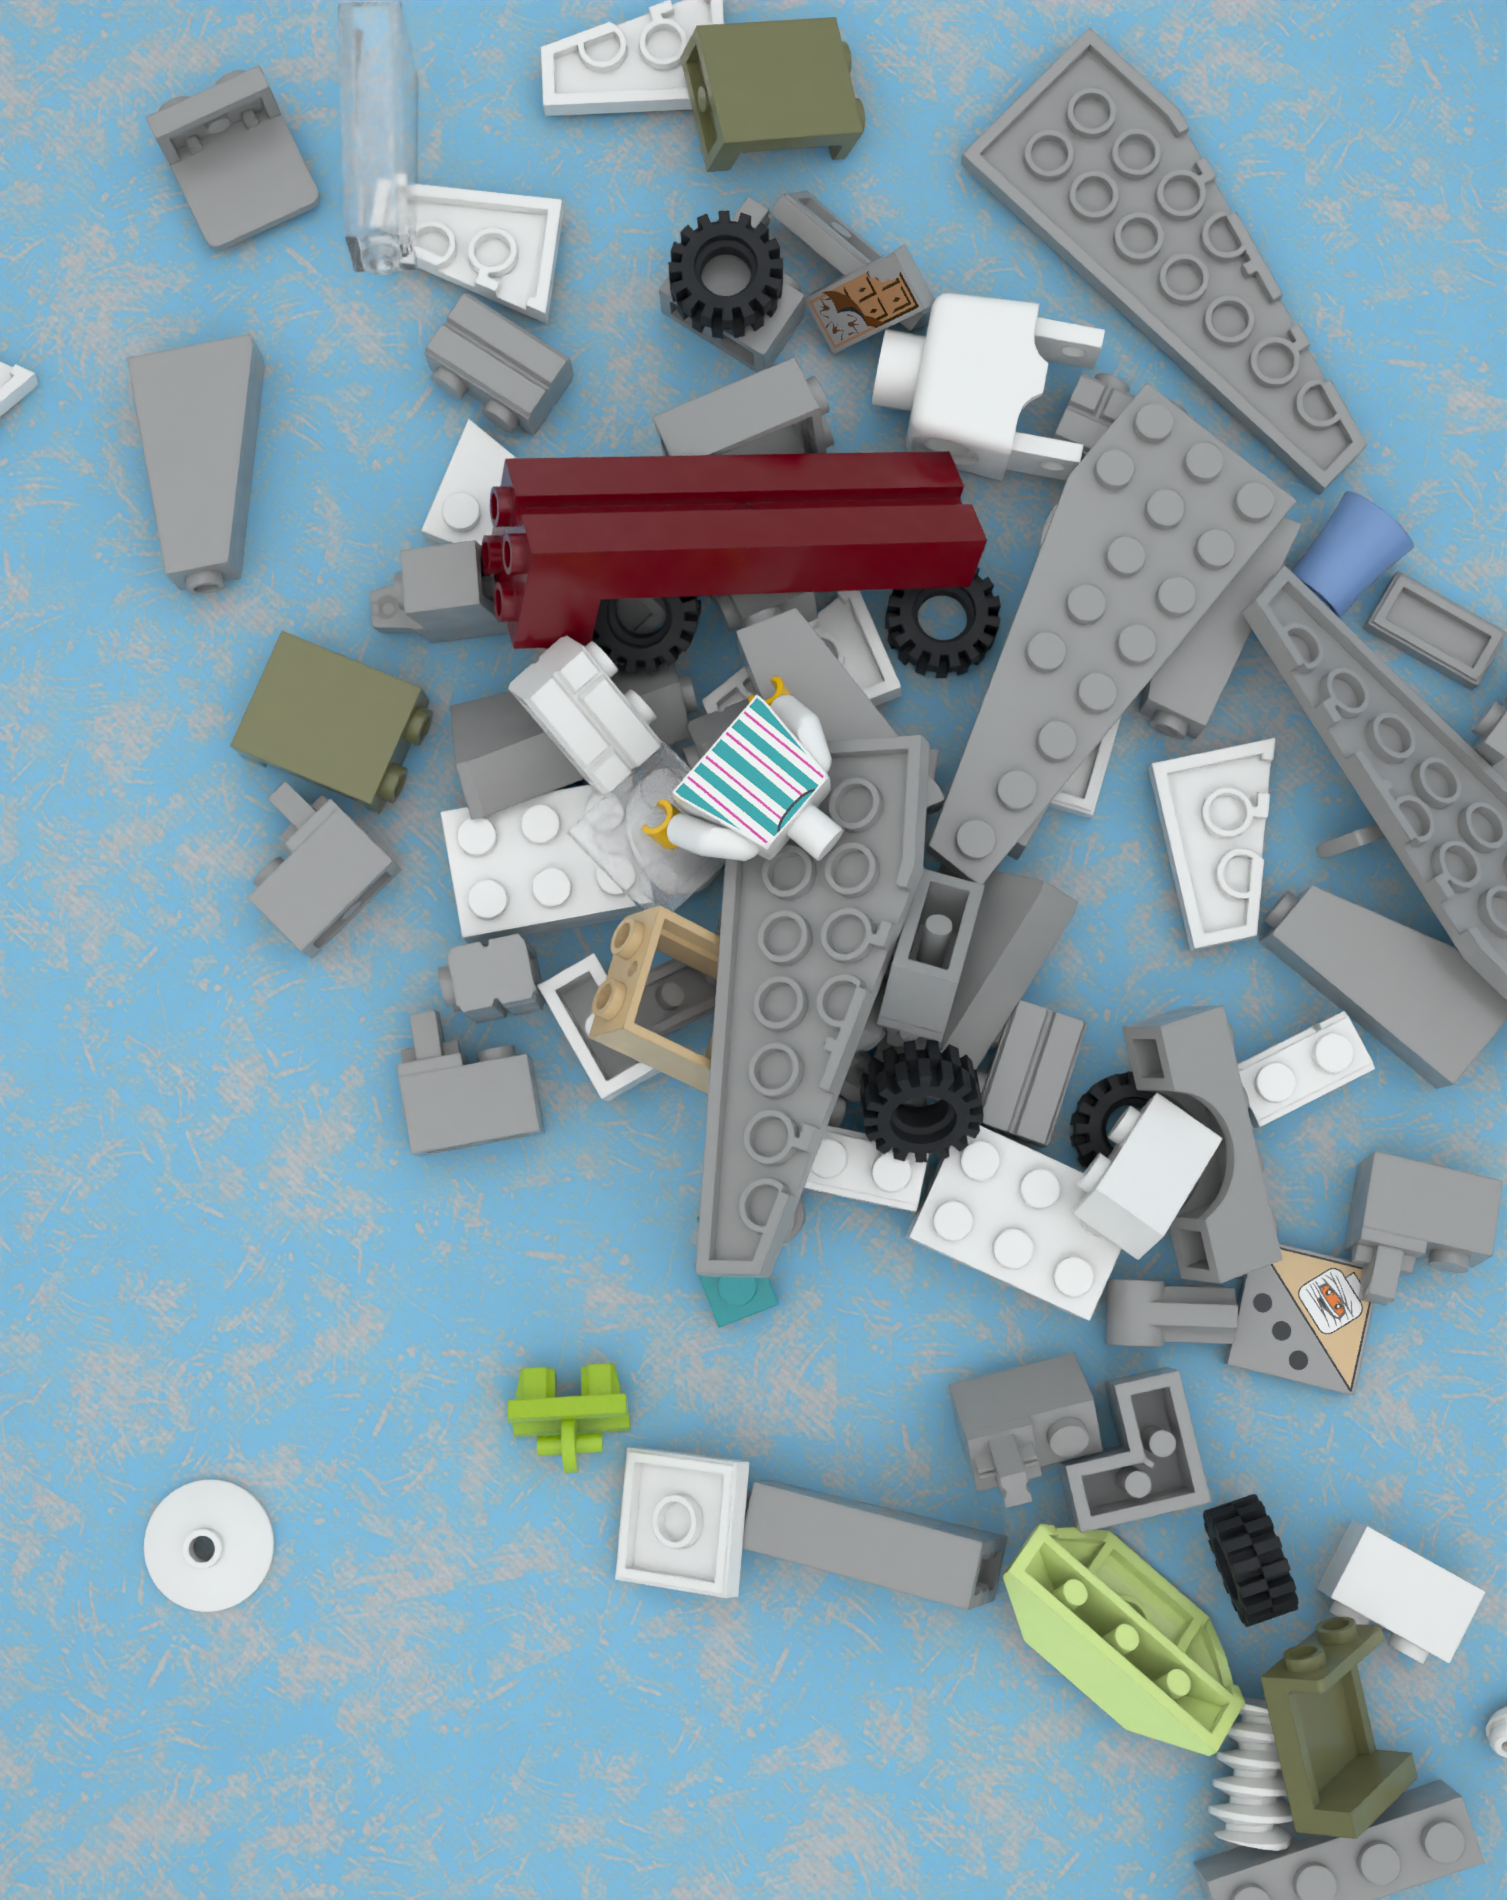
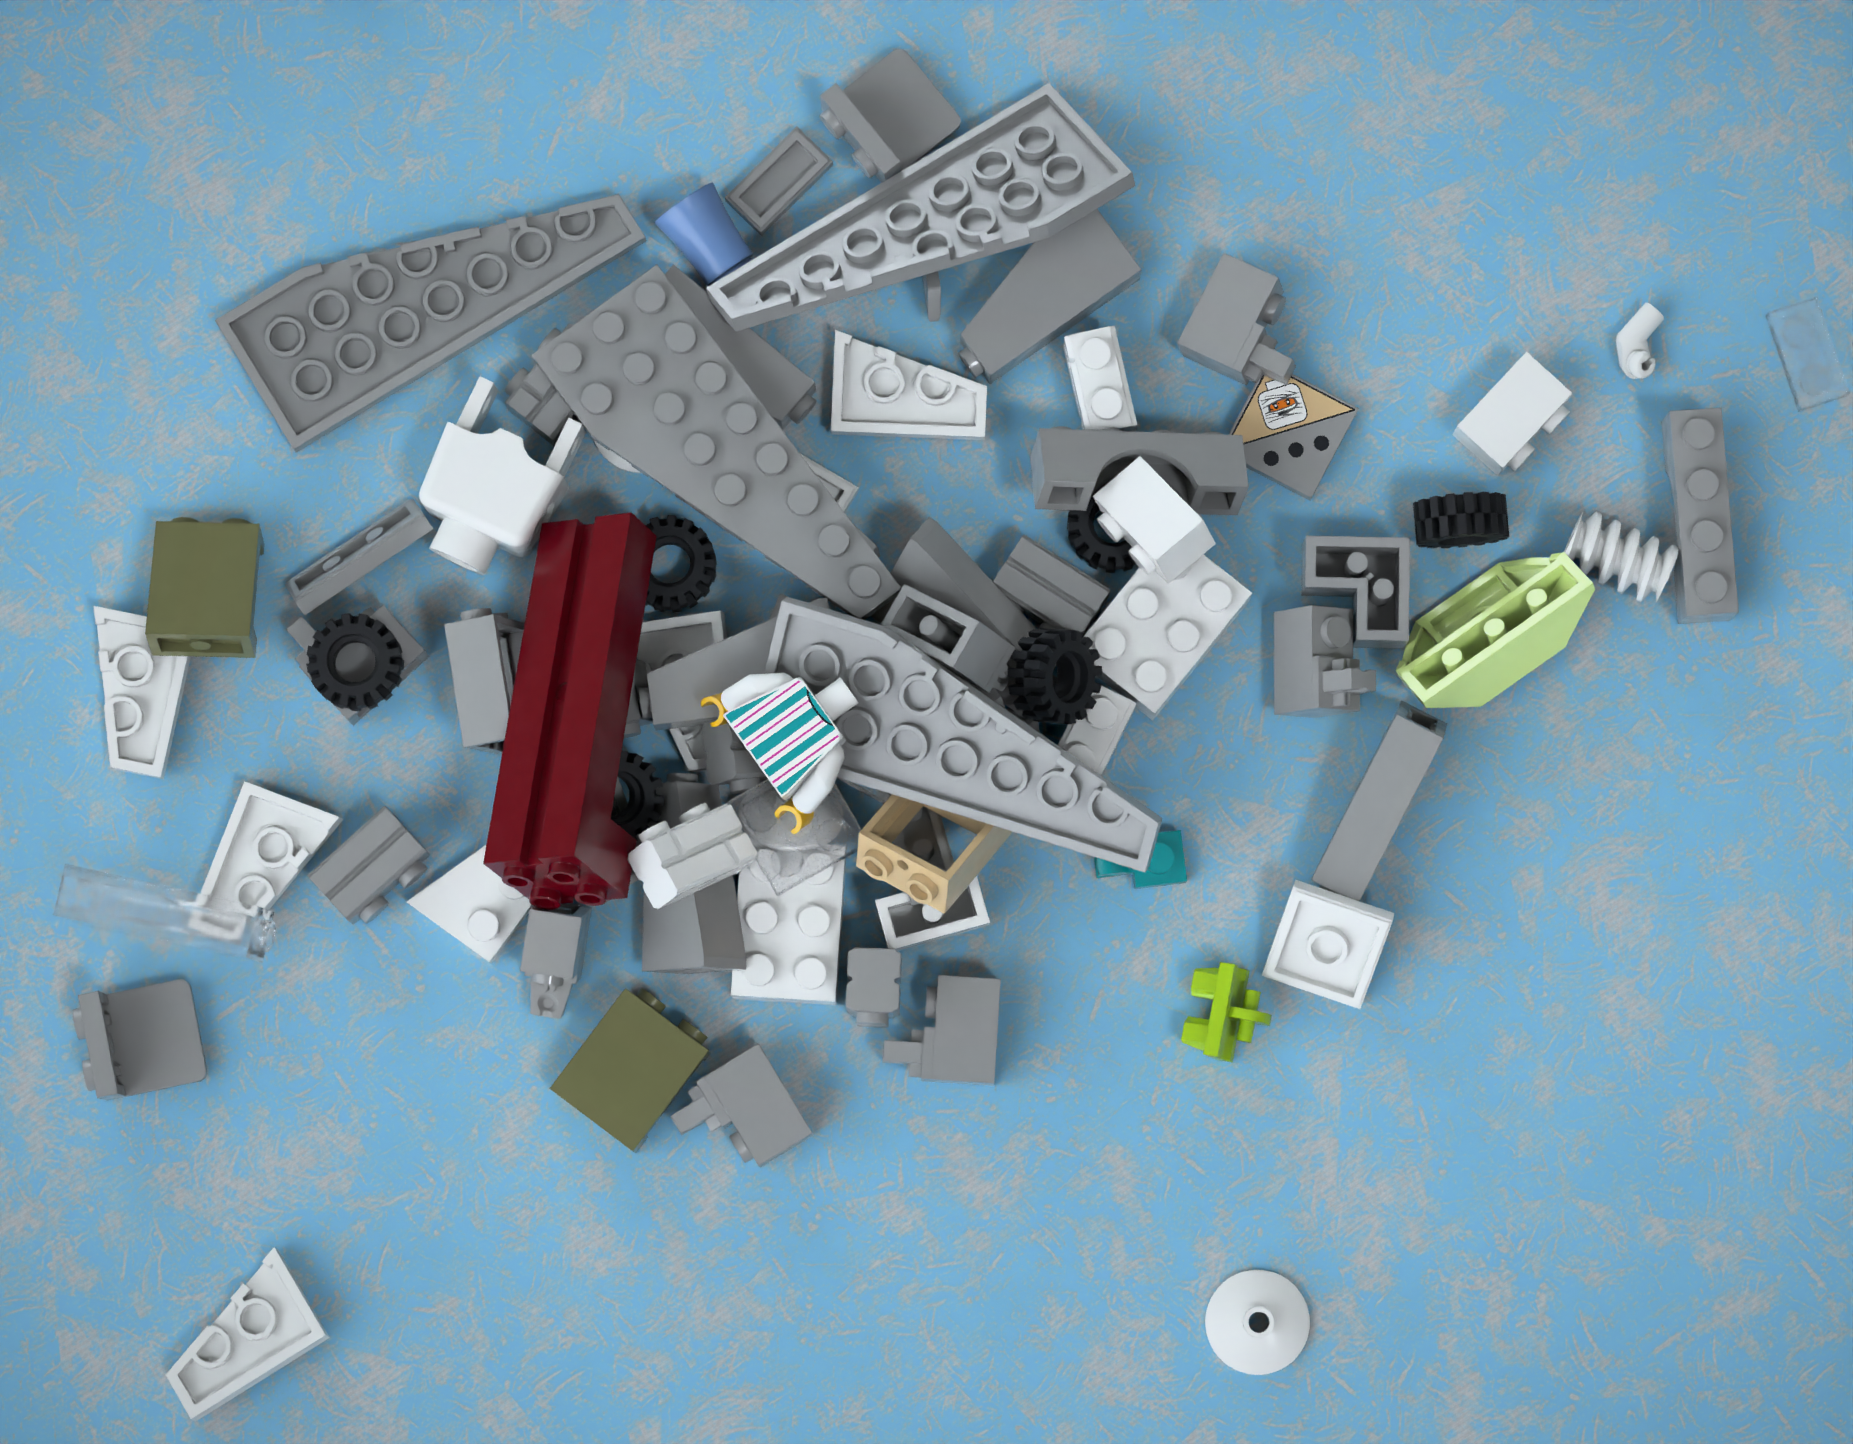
camera: 75 degrees left, 0 degrees up
(199, 451) = (372, 1125): light grey slope -> none
(869, 299) = (401, 555): tile -> none
(1154, 1313) = (1258, 542): light grey piece -> none
(1325, 1733) = (1599, 497): olive panel -> none

